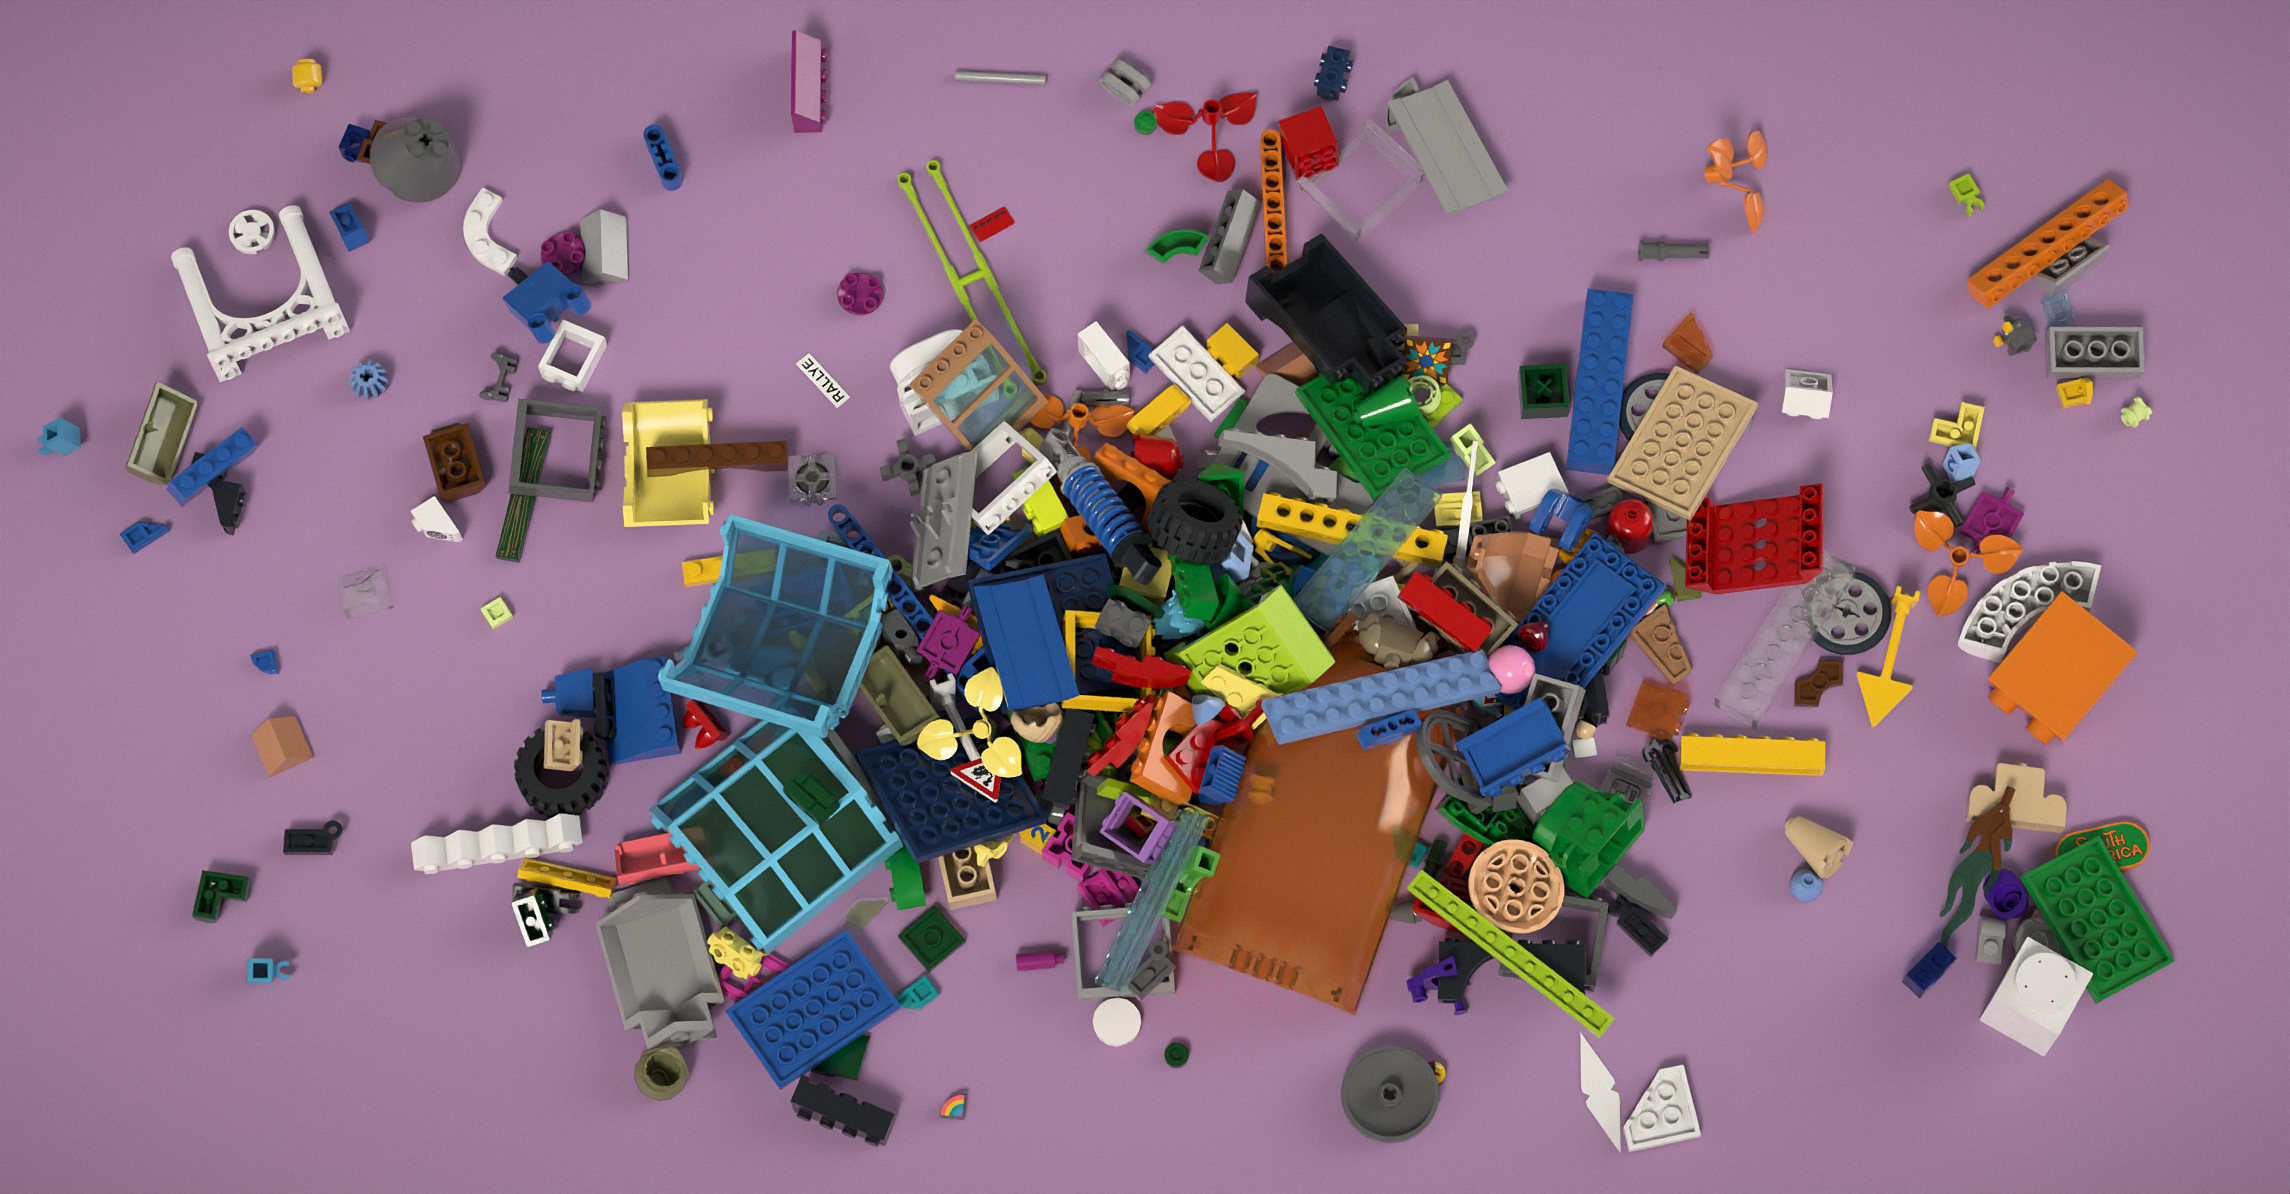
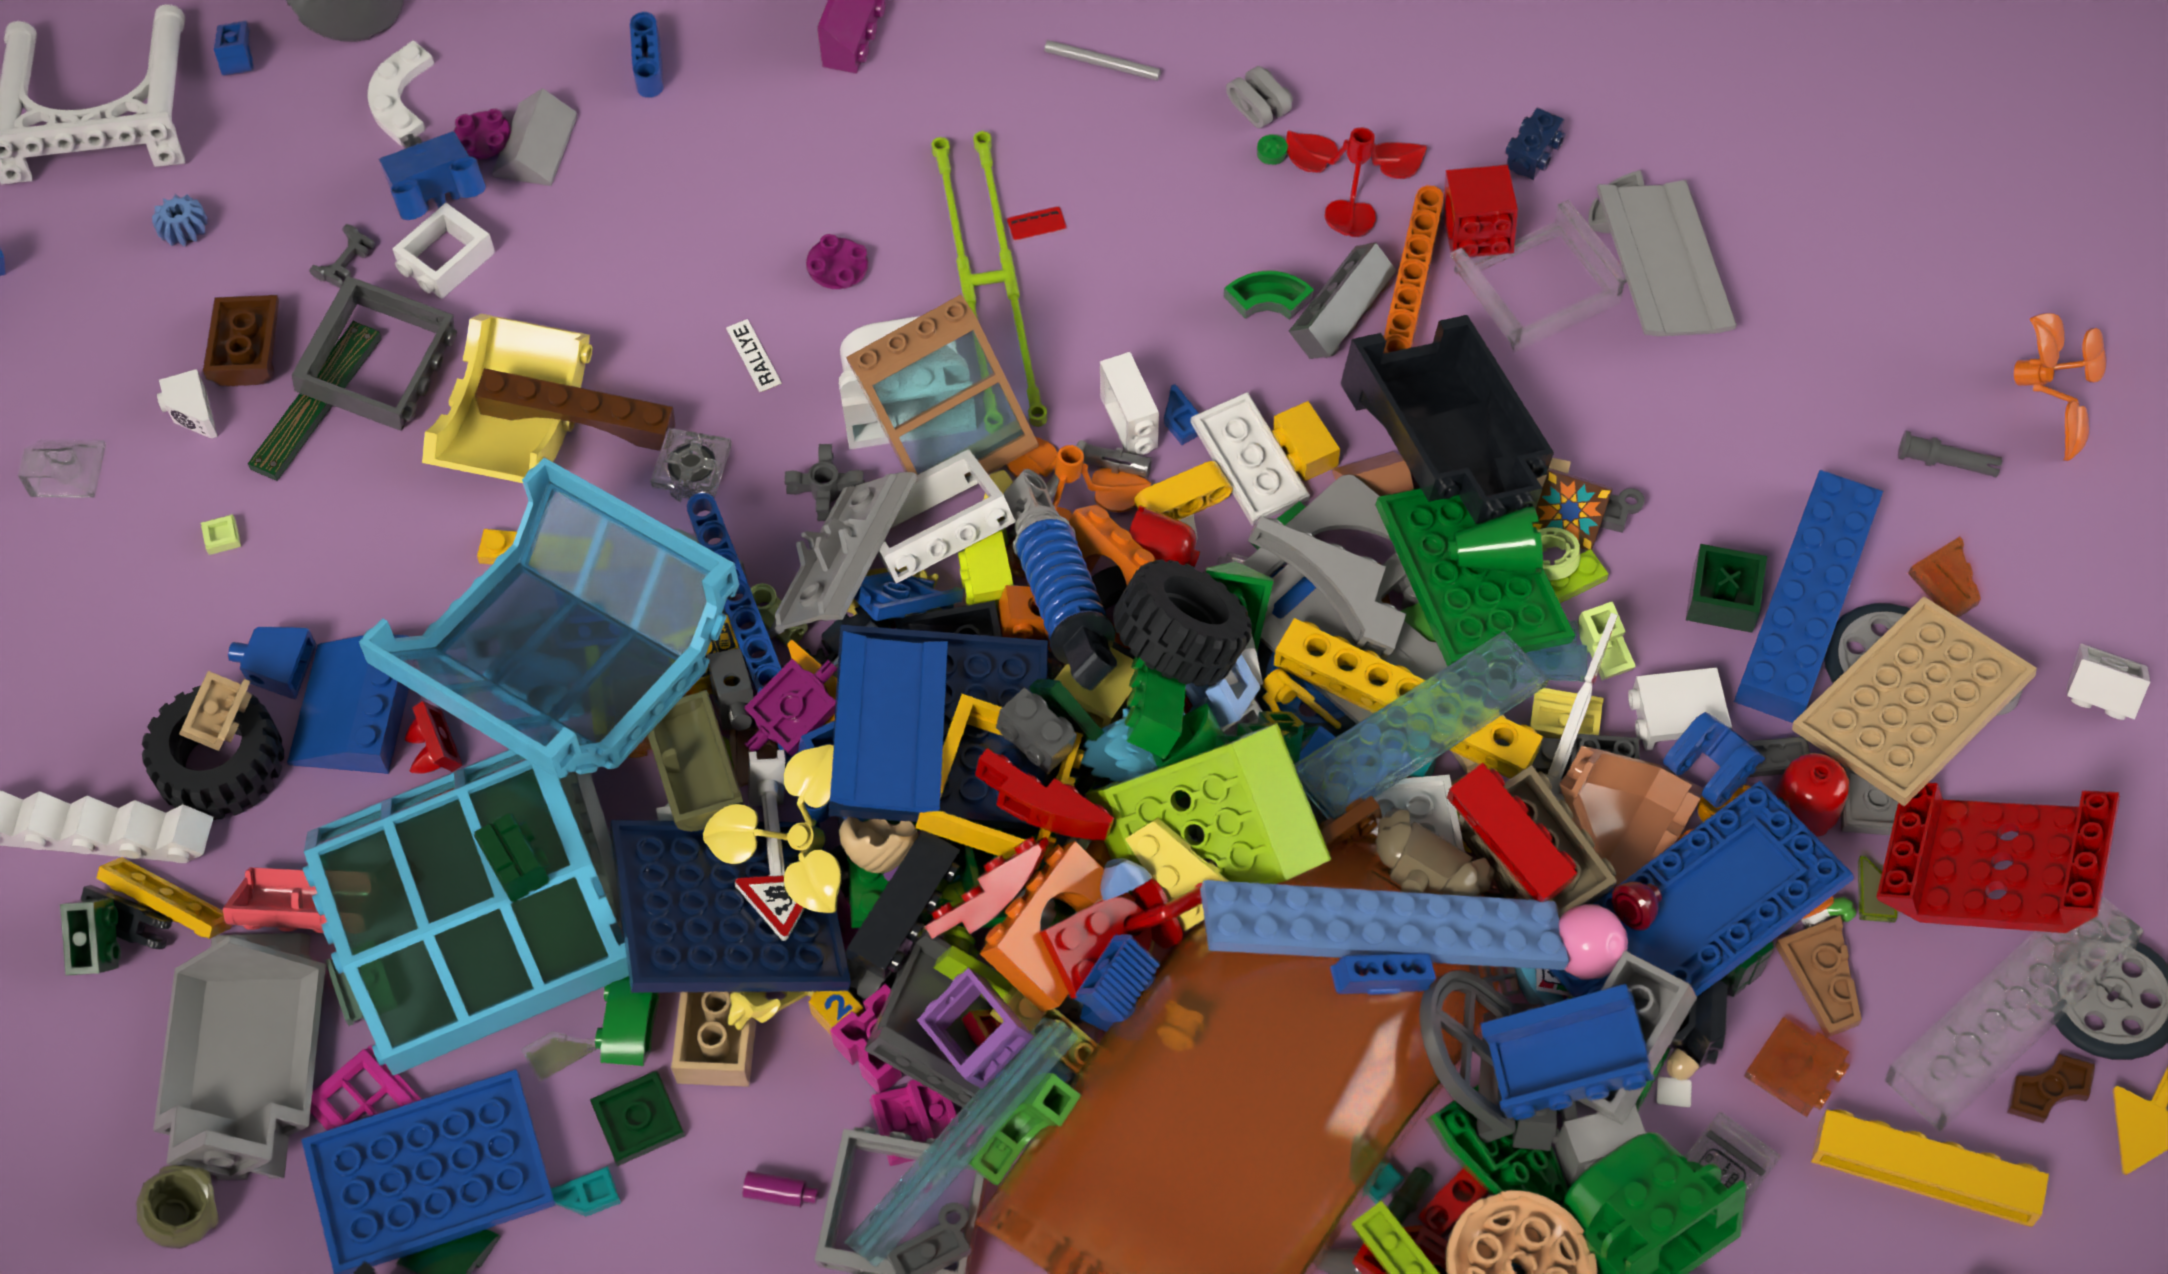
camera: 15 degrees right, 10 degrees down
(251, 232) = (116, 29): white piece -> none
(604, 706) = (305, 682): black hinge -> none
(735, 953) = (348, 1060): light yellow brick -> none
(1670, 767) = (1798, 1152): black piece -> none

